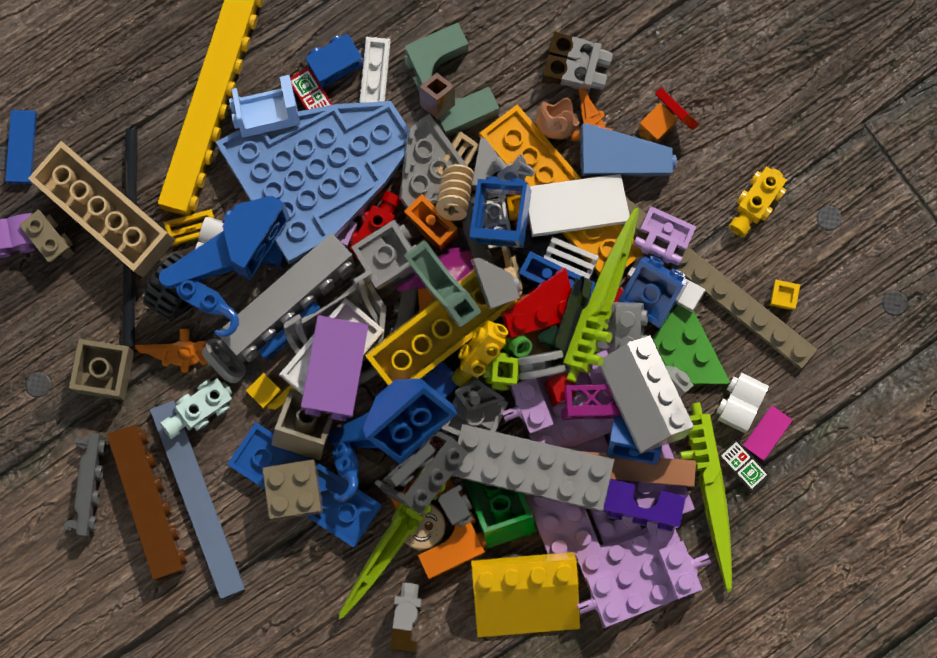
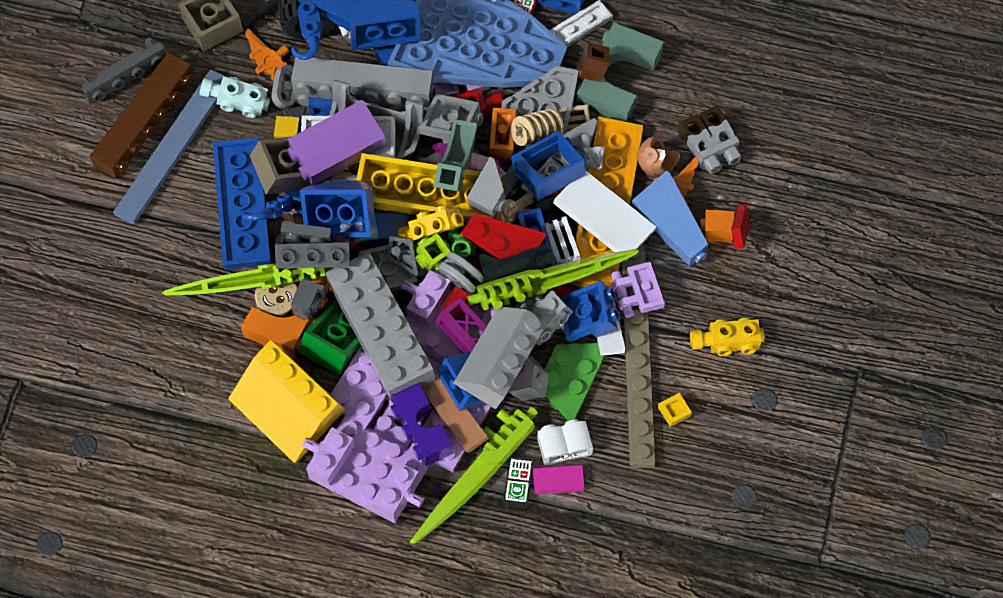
camera: 50 degrees right, 15 degrees down
(293, 490) = (228, 191): dark tan brick -> none
(405, 619) = (197, 335): light grey hips -> none

